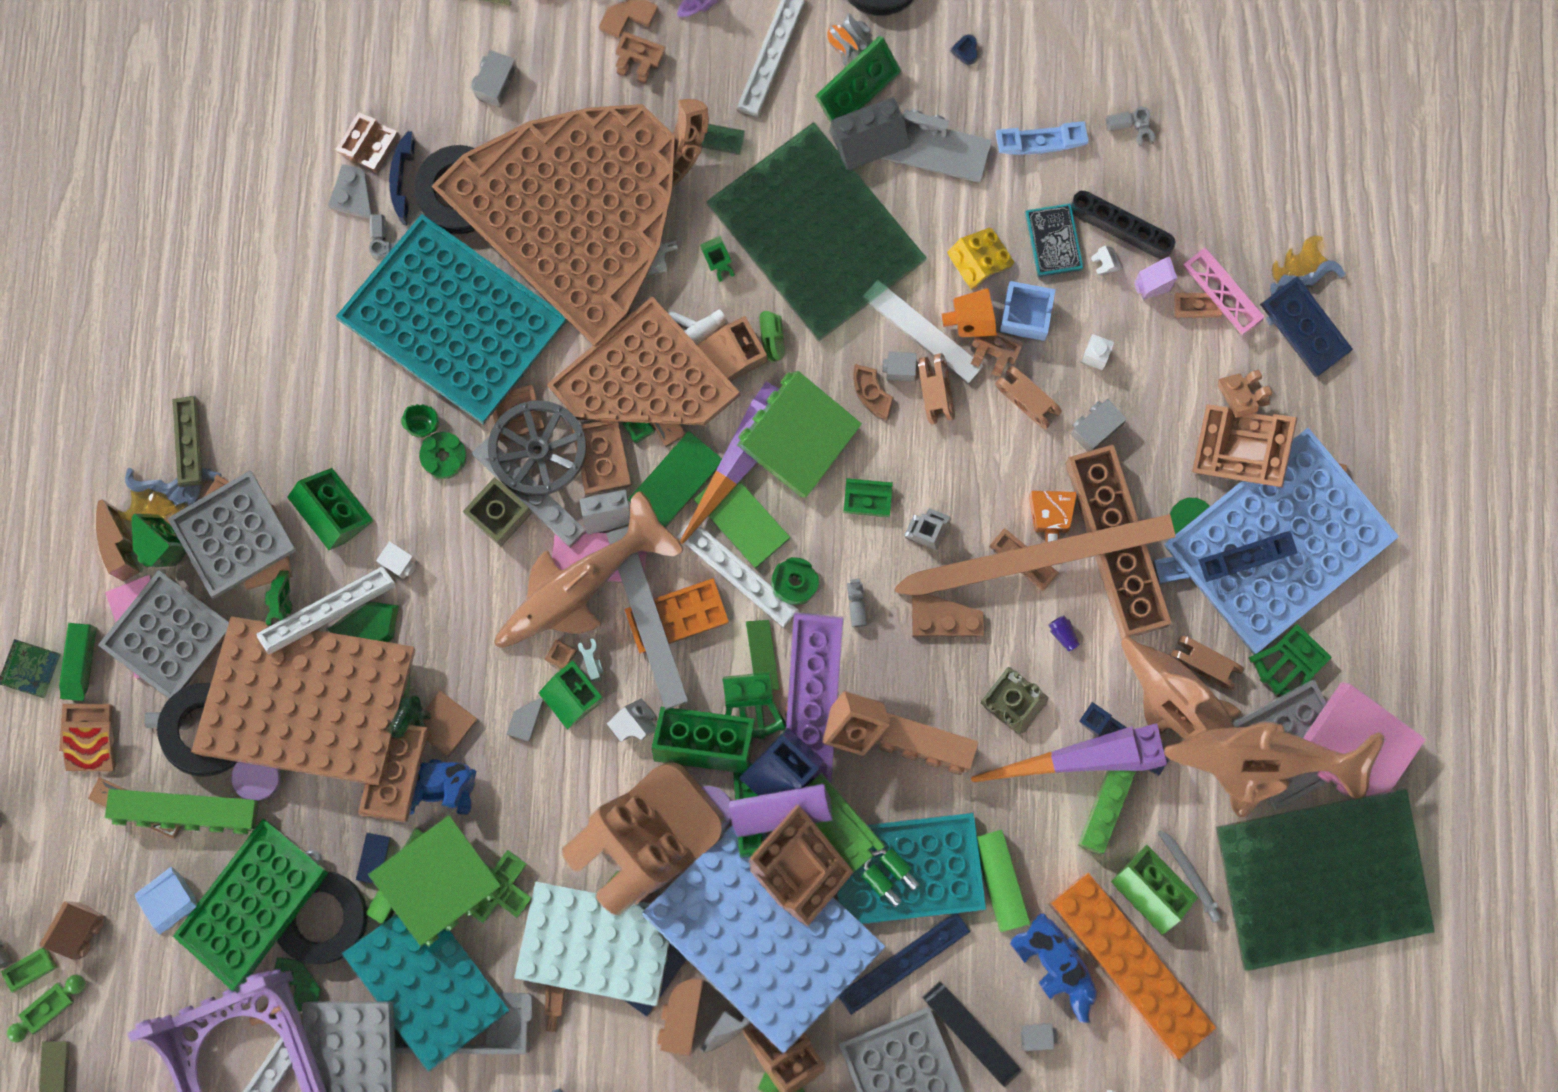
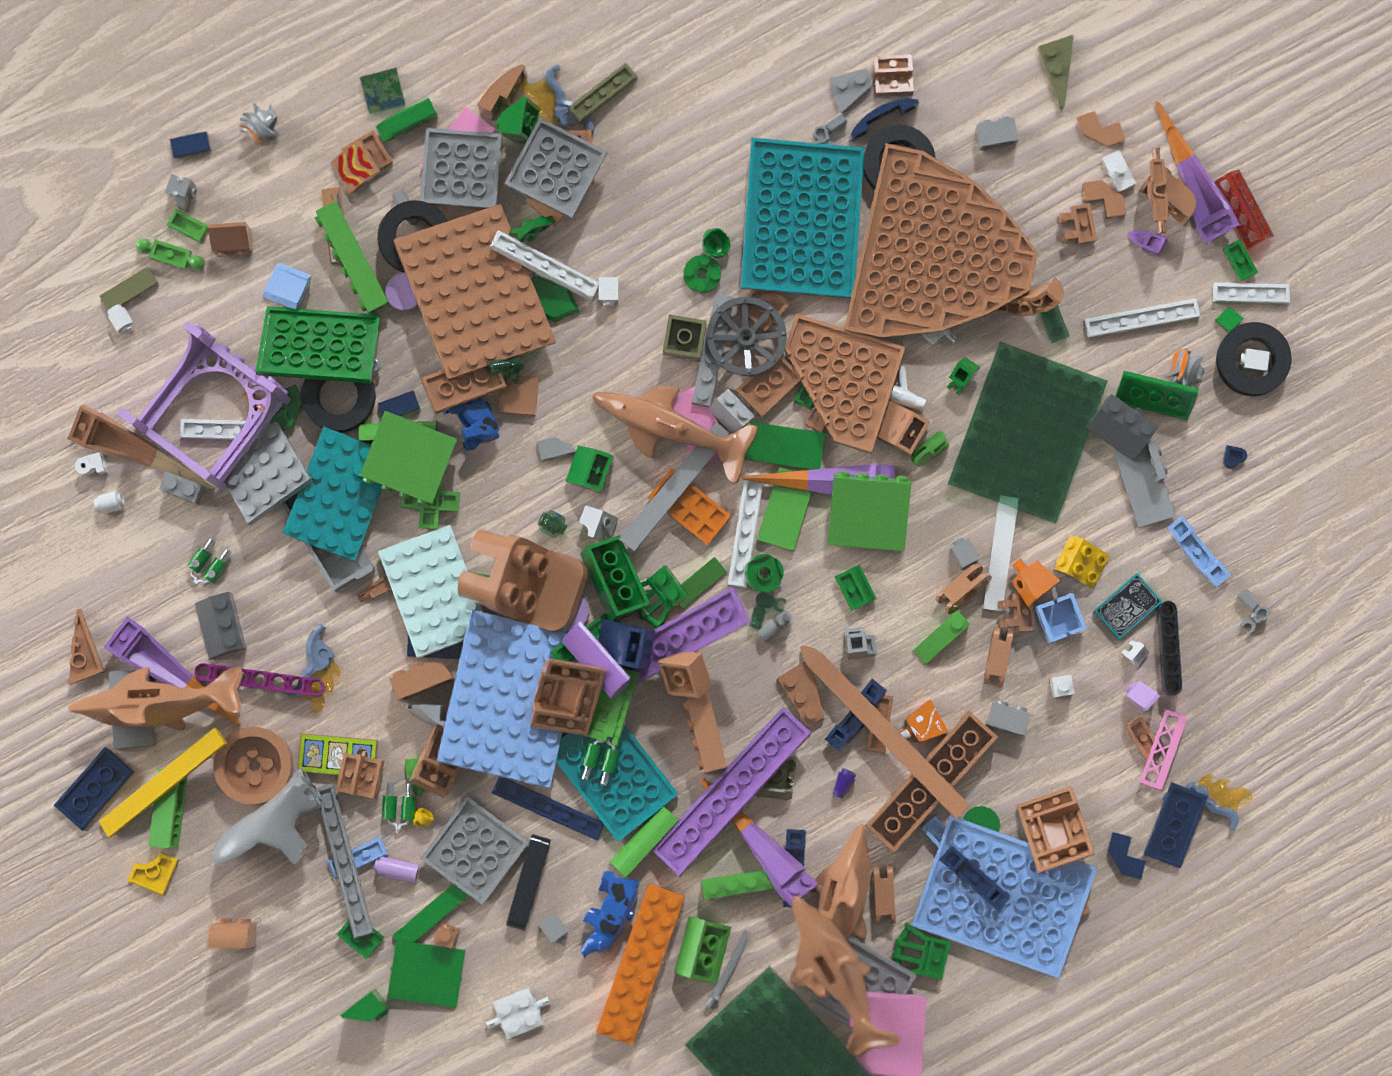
camera: 60 degrees right, 5 degrees up
(329, 508) = (616, 221): green slope -> none
(560, 654) = (614, 444): nougat tile -> none
(593, 666) = (619, 471): light aqua plate -> none
(603, 771) = (552, 523): none -> clear green head
(823, 599) = (758, 613): none -> clear green bar
(870, 392) = (933, 542): nougat tile -> none
(972, 440) = (941, 637): none -> bright green slope
(1006, 755) = (731, 791): none -> medium lavender plate
(1008, 587) = (850, 726): none -> dark blue slope
(1238, 394) = (1092, 805): nougat plate -> none
(1299, 399) = (1118, 851): none -> dark blue tile

